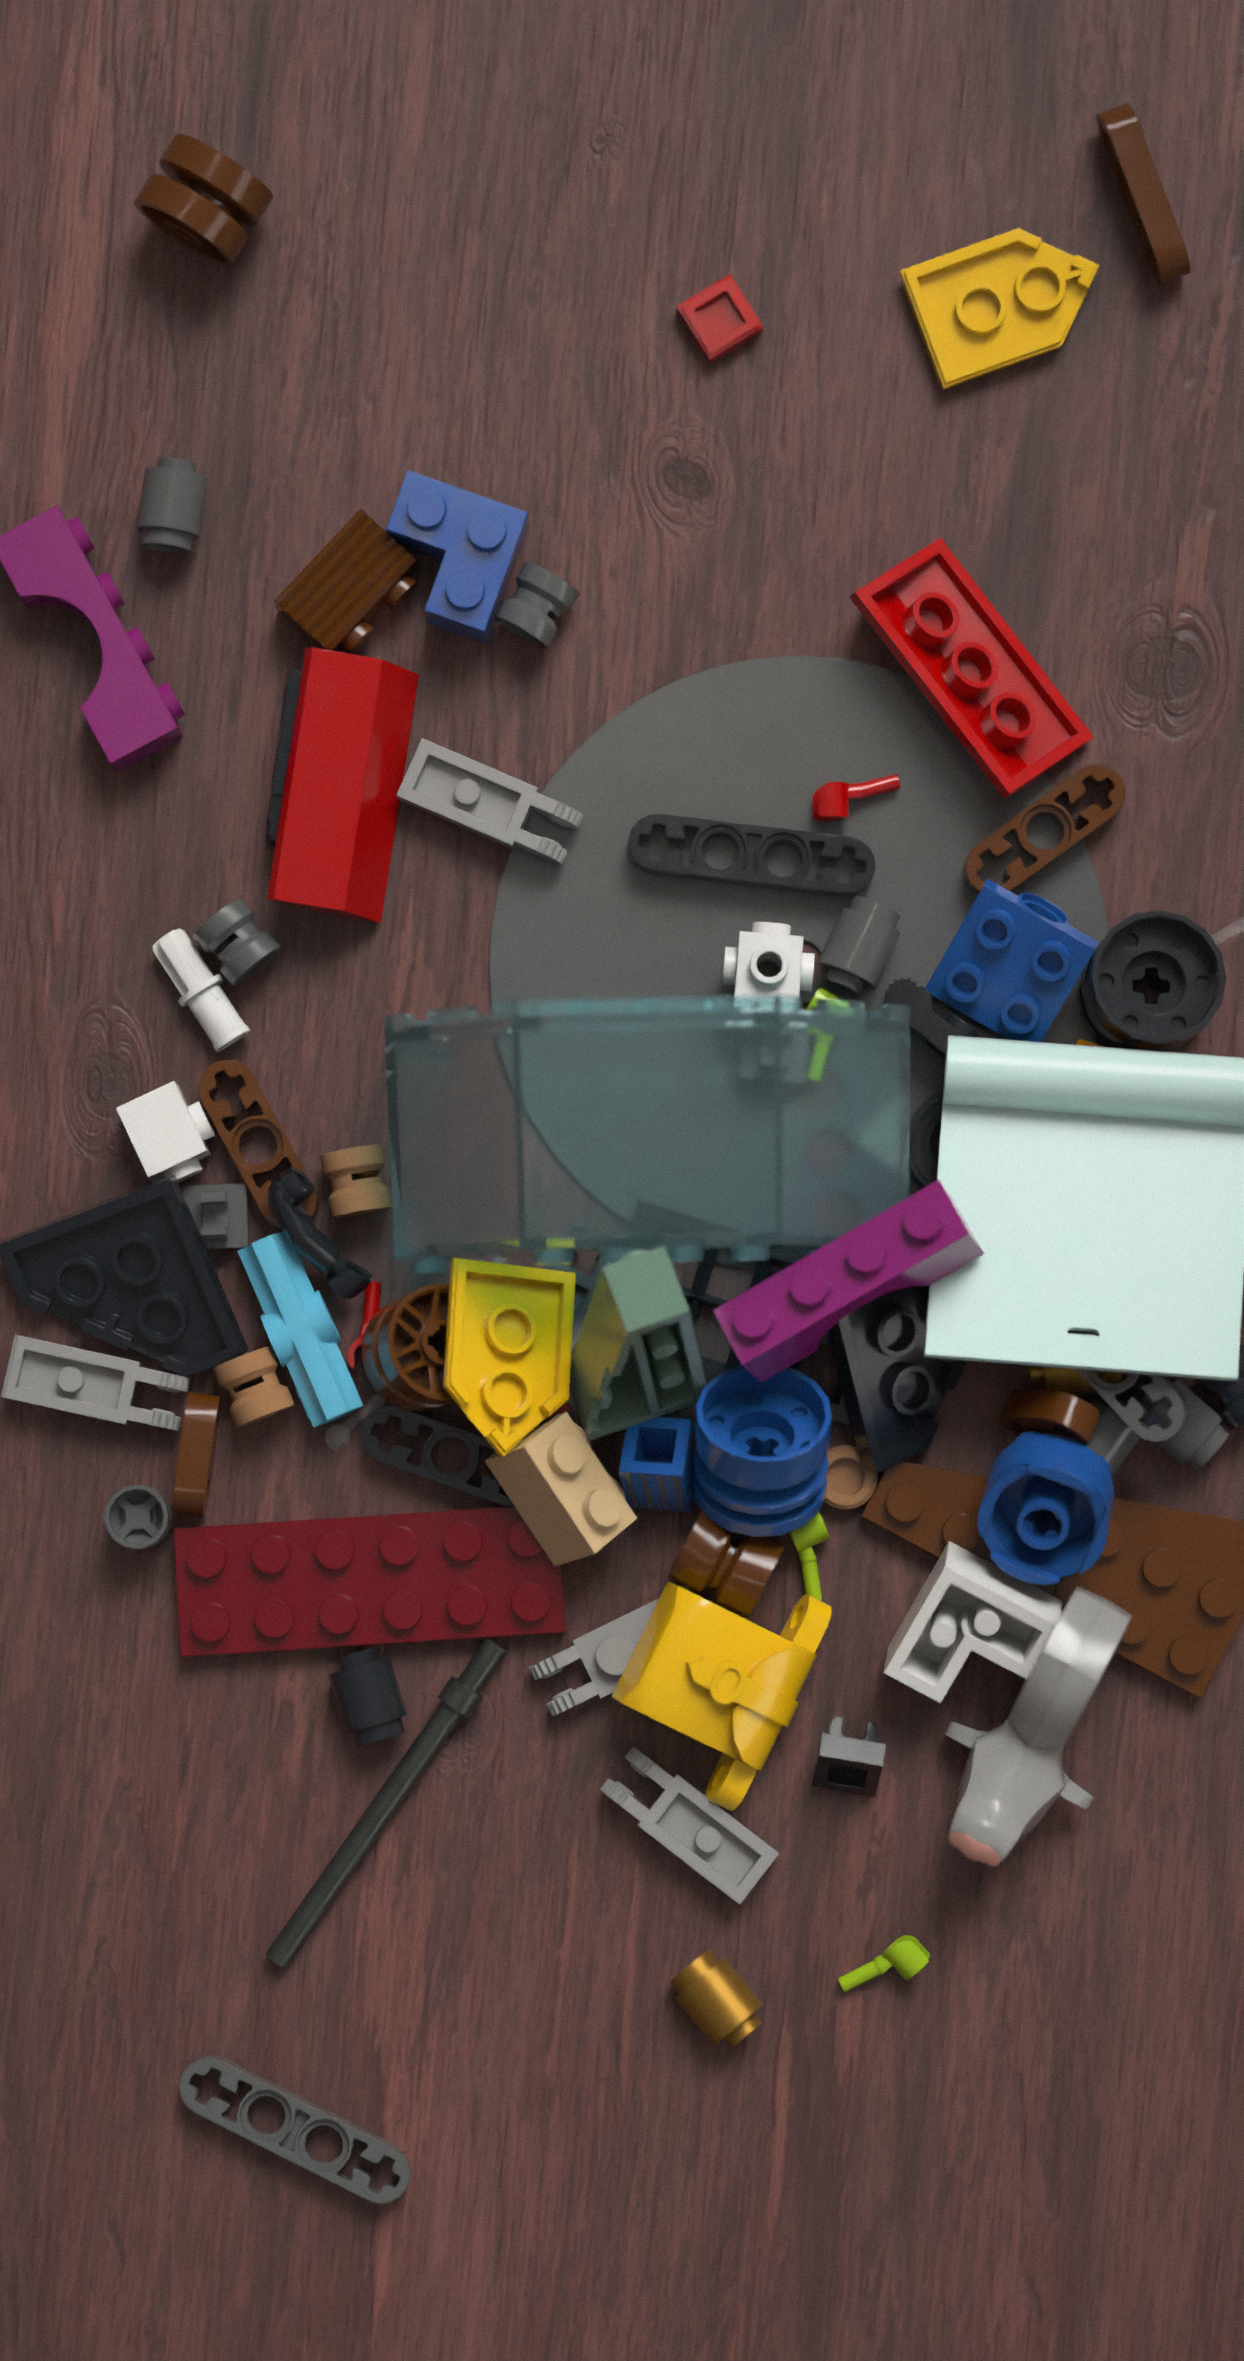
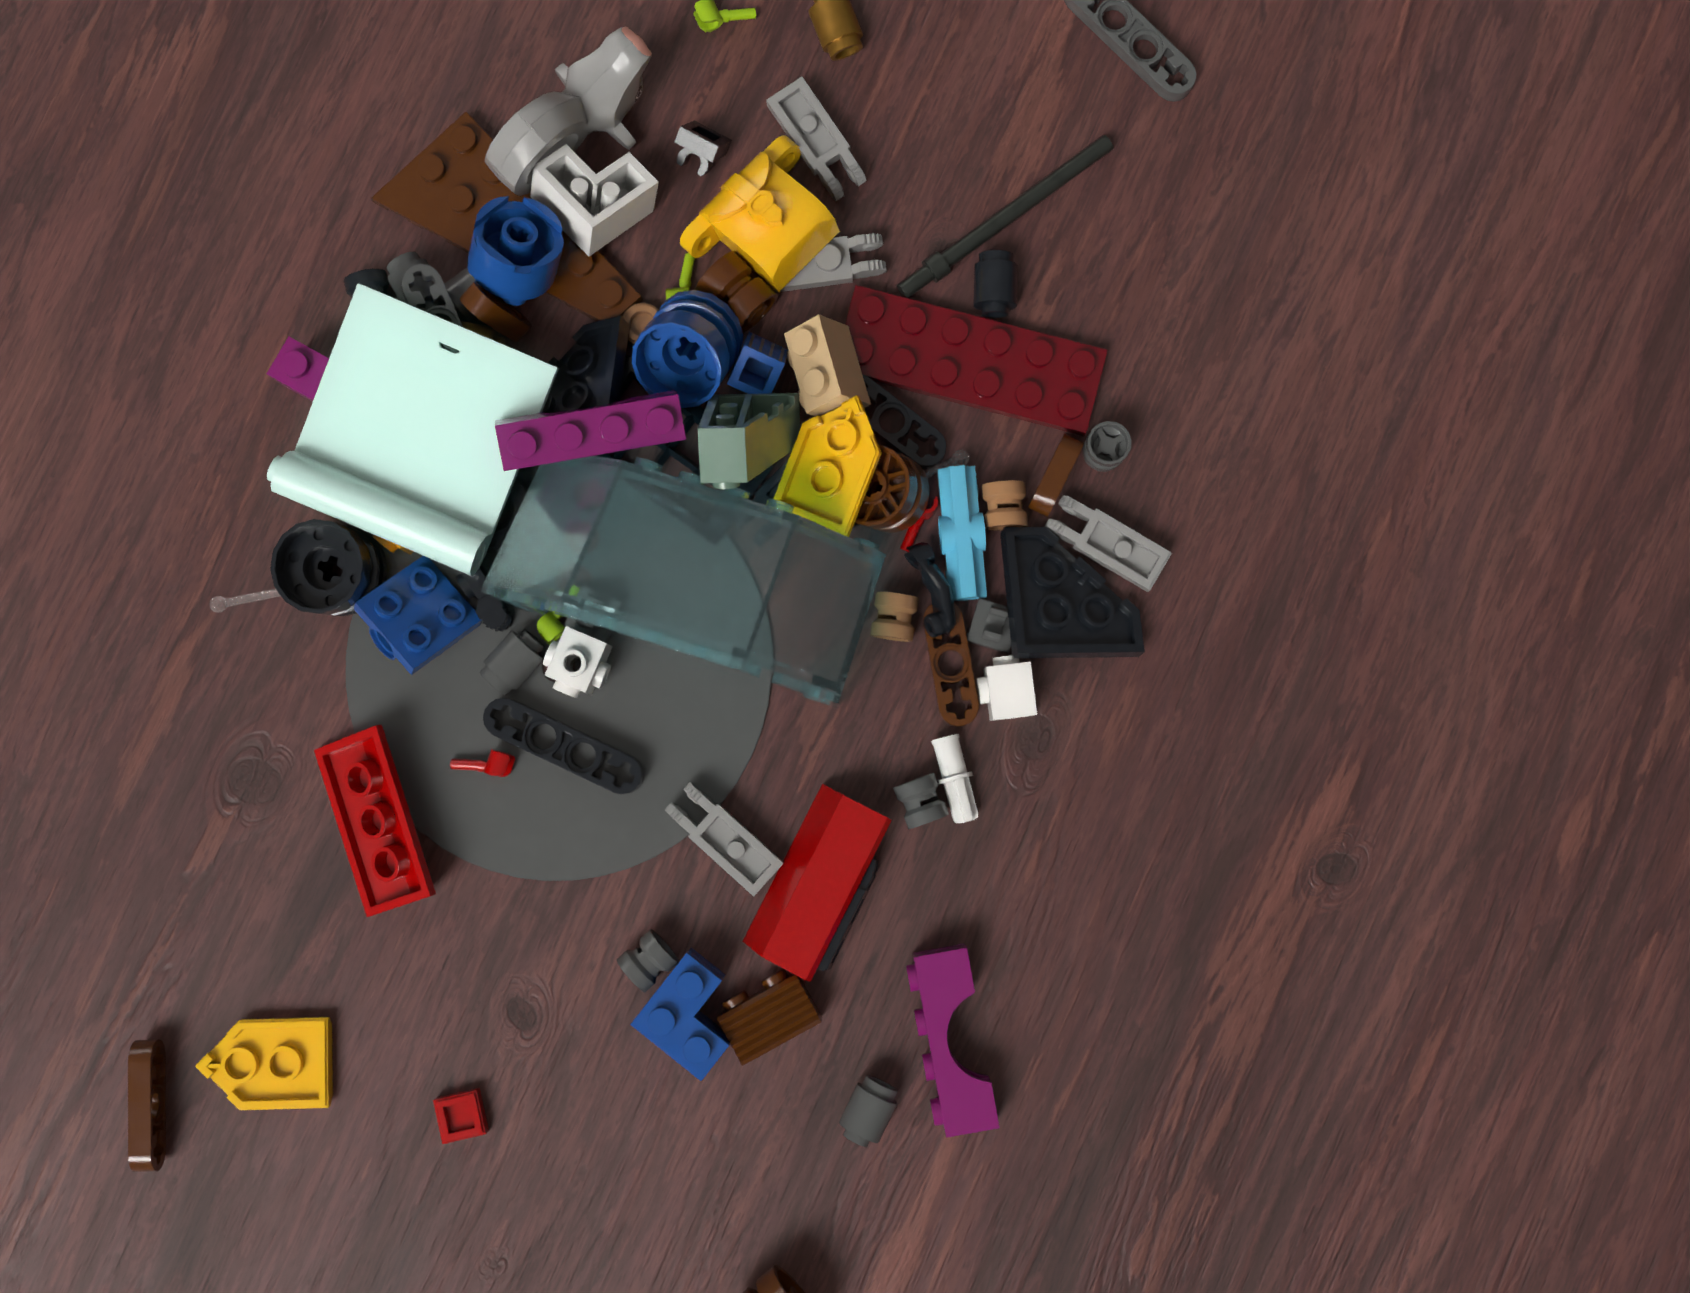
camera: 155 degrees left, 0 degrees up
(1073, 791) = (340, 717): reddish brown beam -> none

